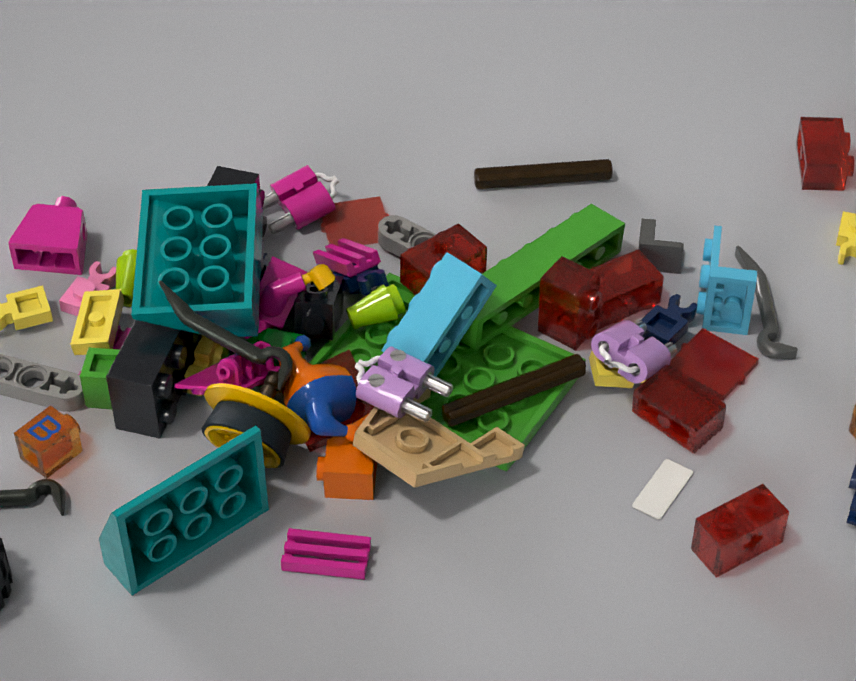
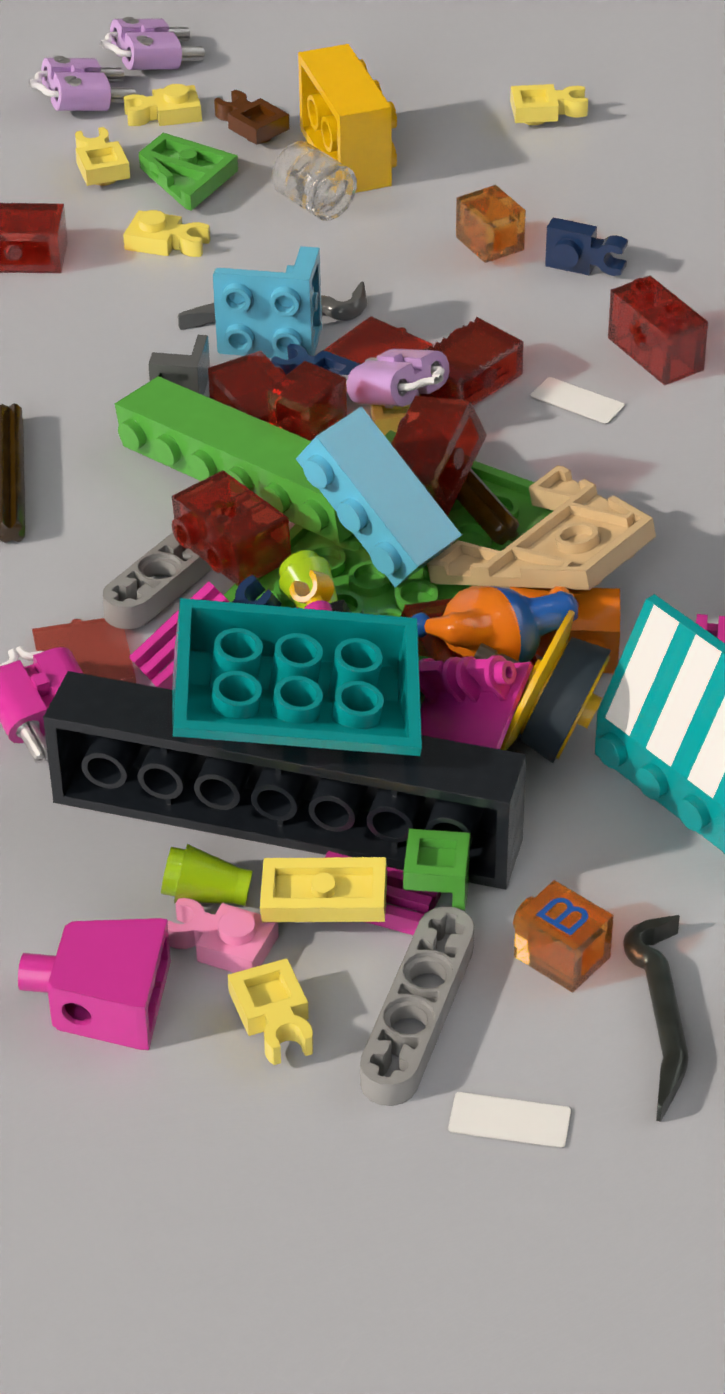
camera: 90 degrees left, 5 degrees down
(228, 339) = (478, 626): pearl dark grey piece -> none
(397, 382) = (495, 541): lavender piece -> none
(508, 357) = (440, 444): none -> clear red brick

